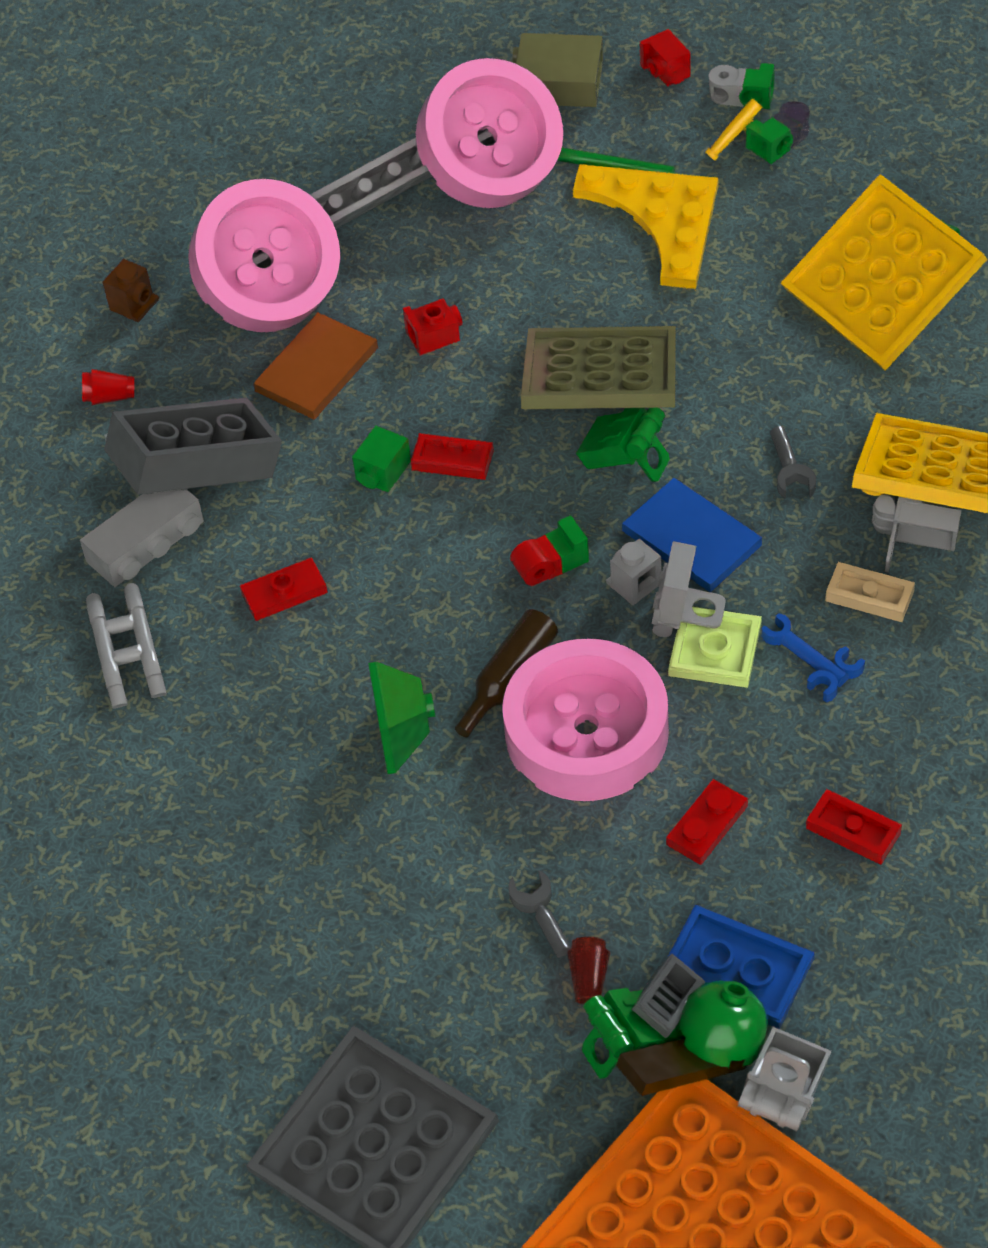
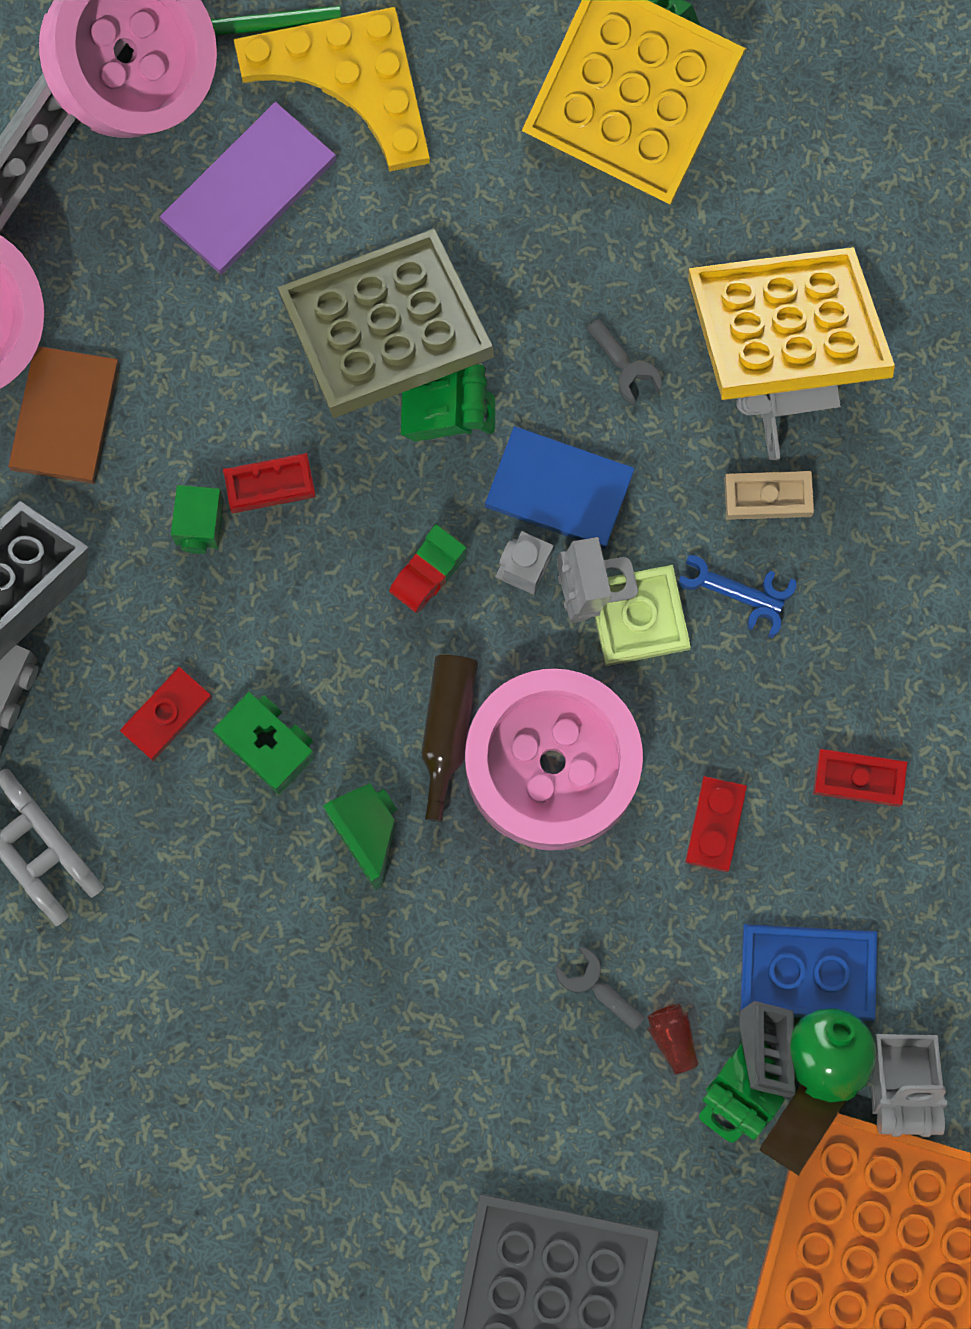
camera: 30 degrees left, 25 degrees up
(351, 630) = (240, 734): none -> green brick
(432, 325) = (171, 333): red brick -> none
(540, 262) = (248, 188): none -> medium lavender tile

